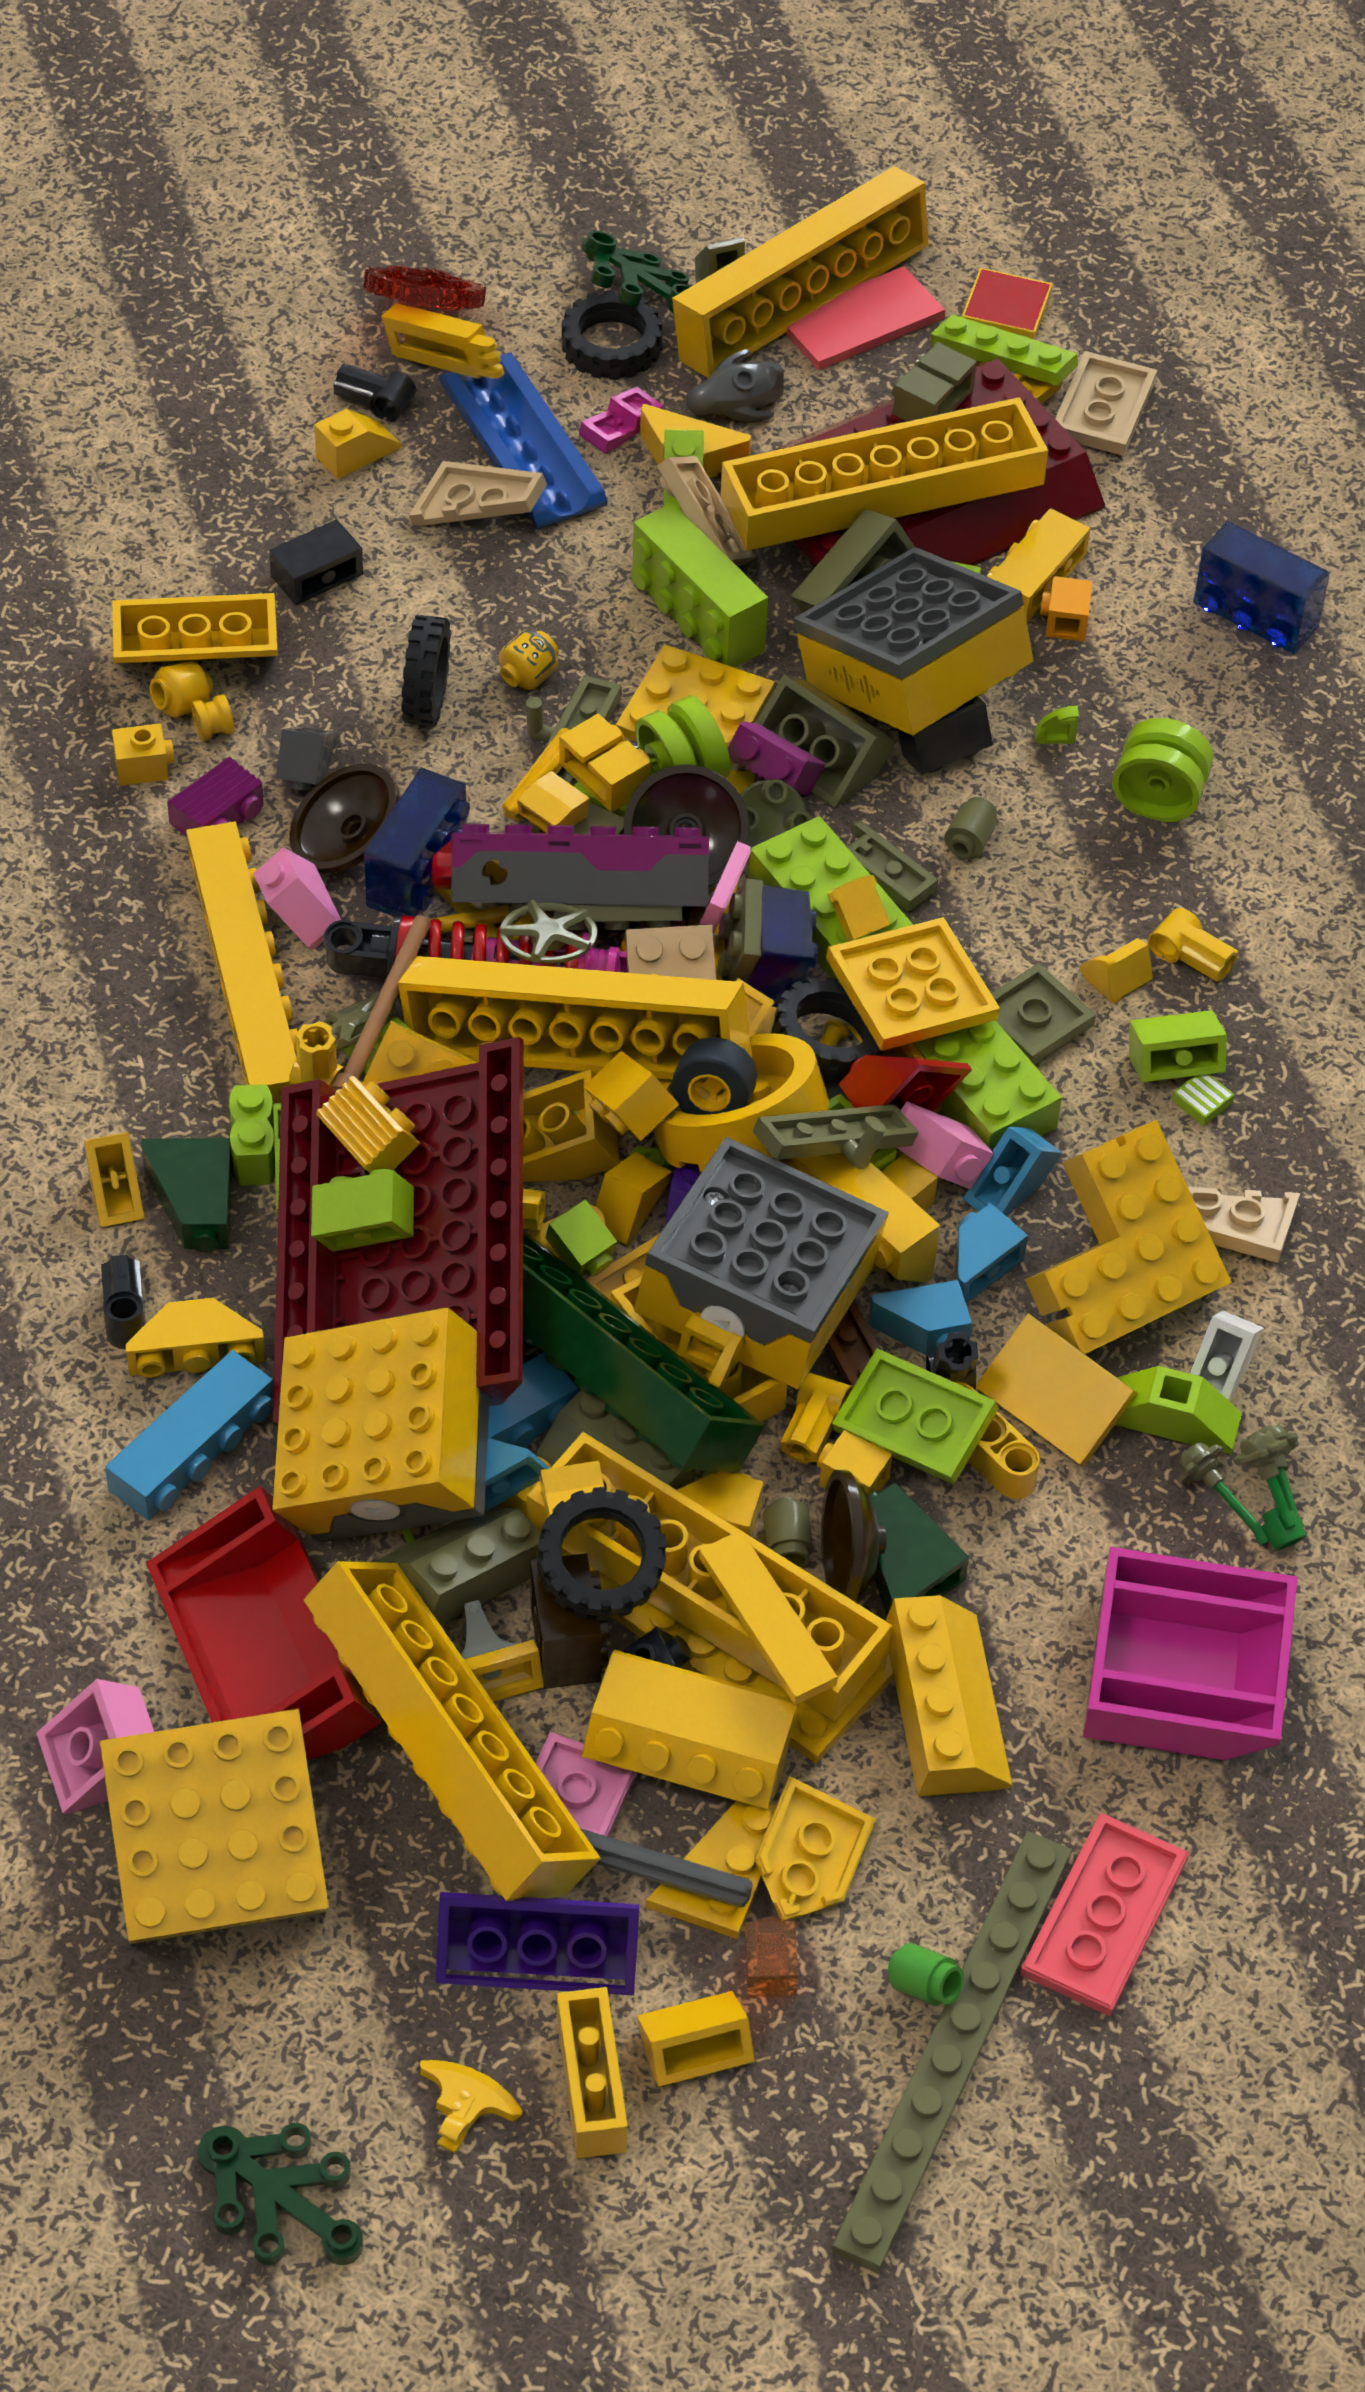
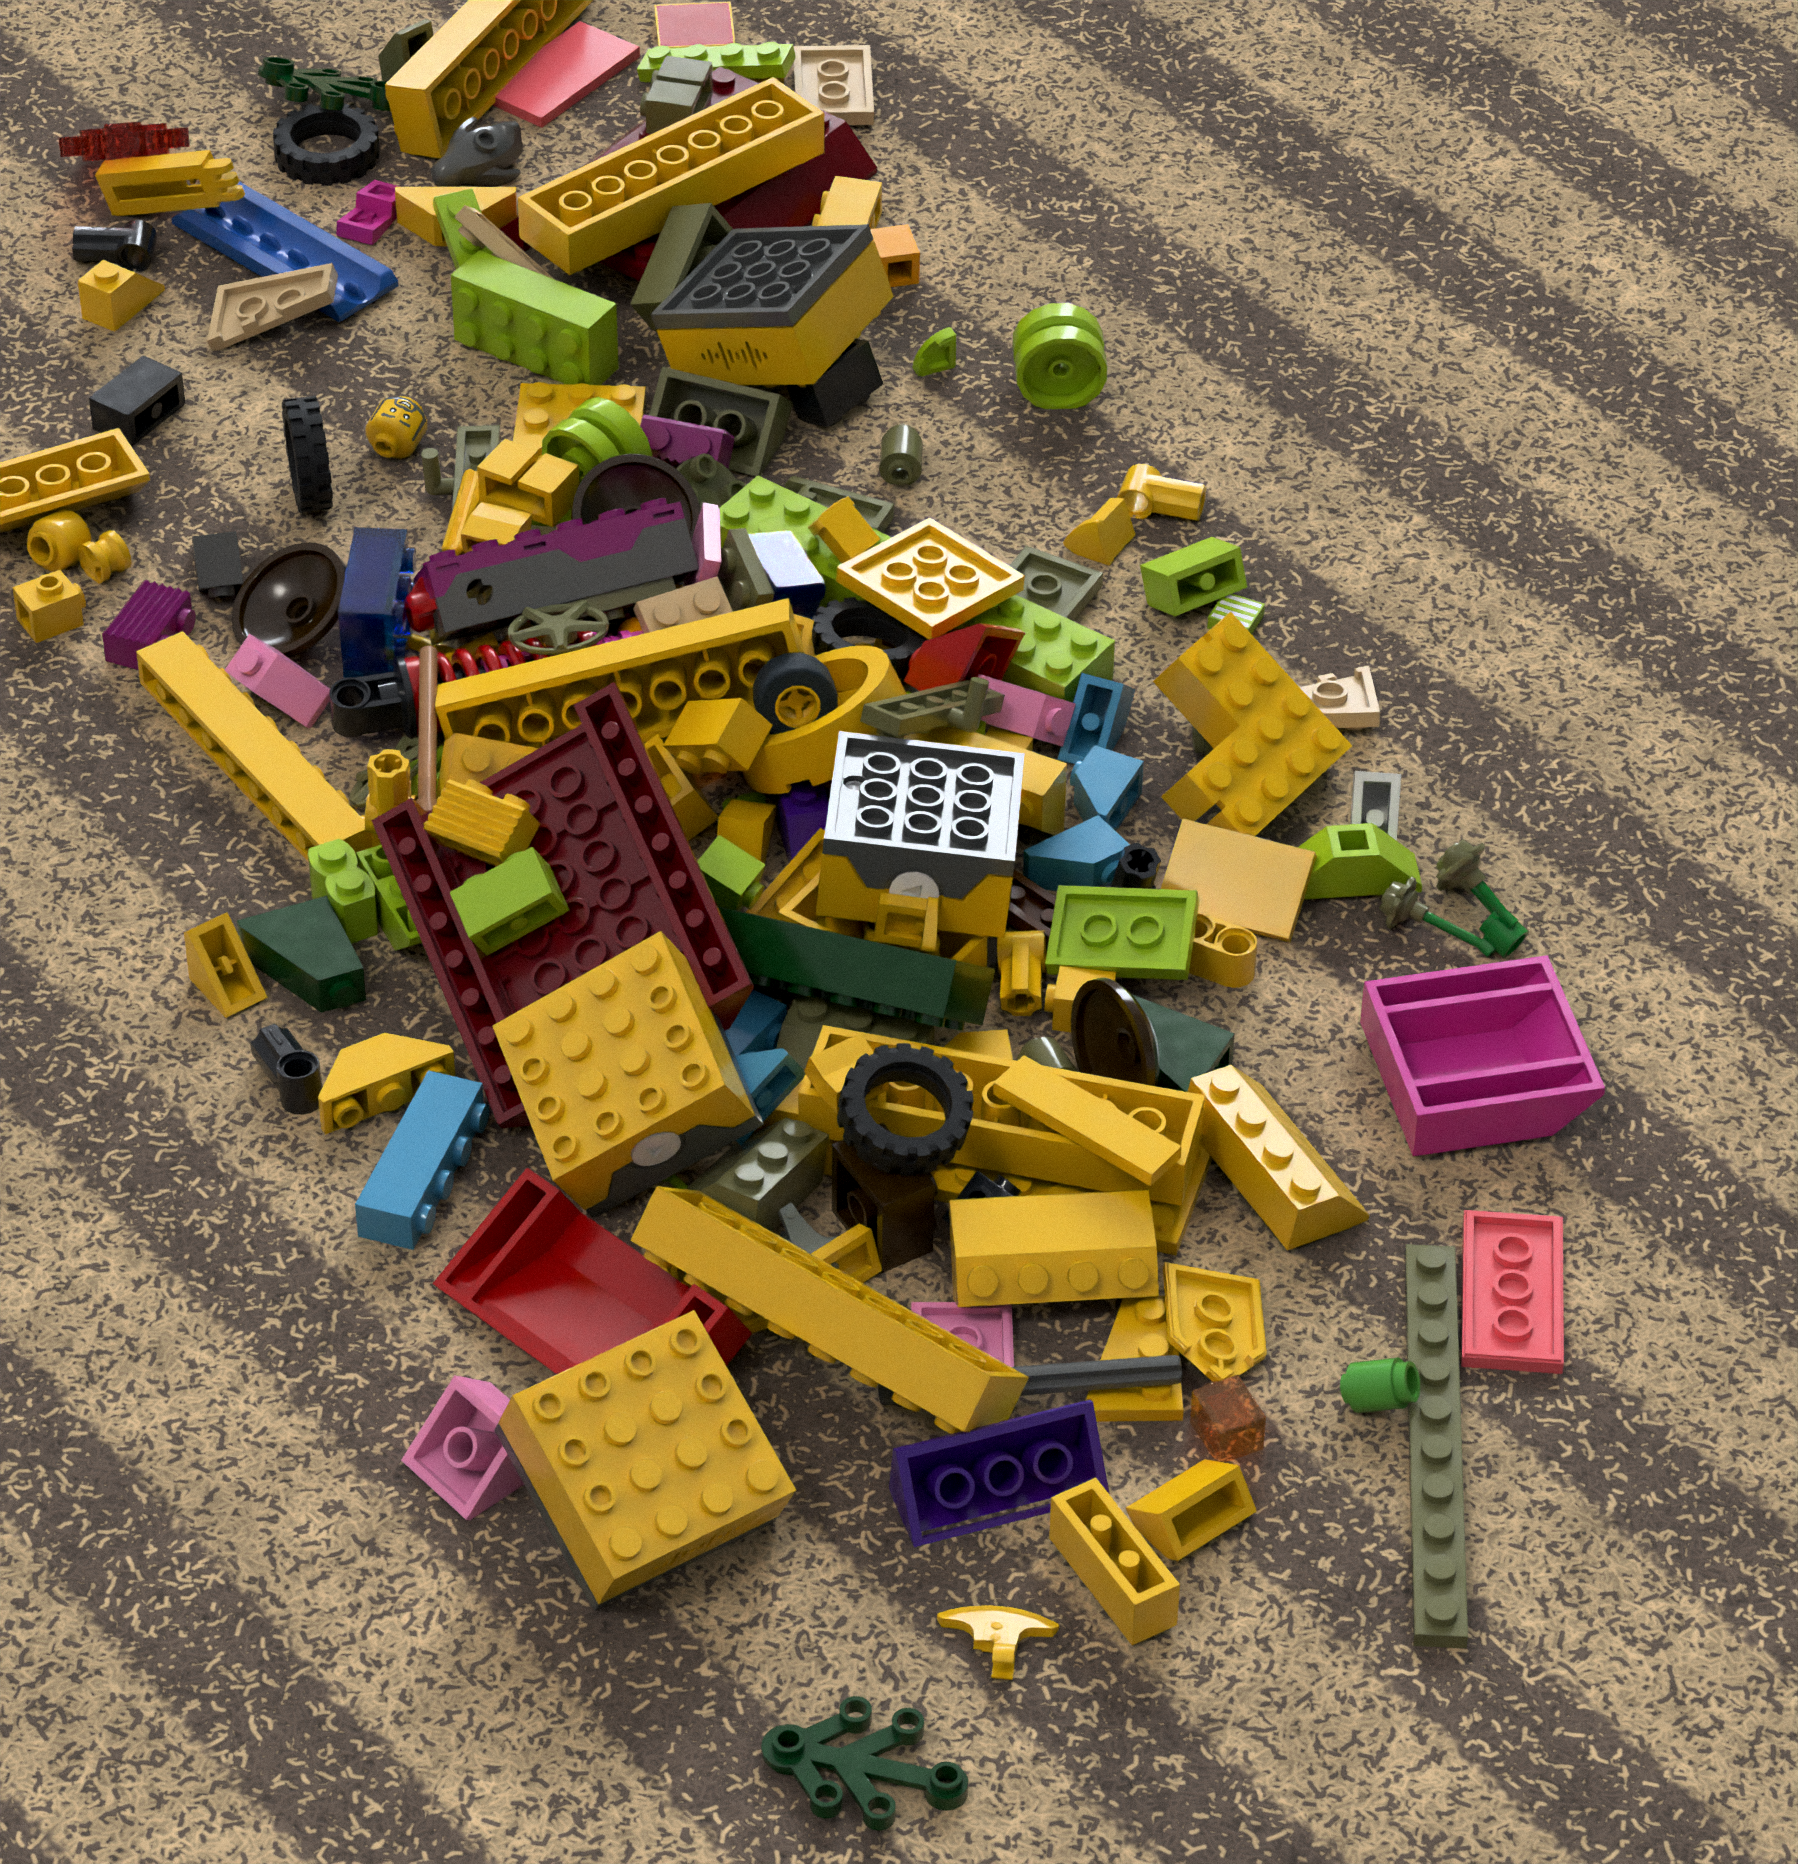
camera: 20 degrees left, 10 degrees down
(1261, 587) = (1067, 189): clear blue brick -> none

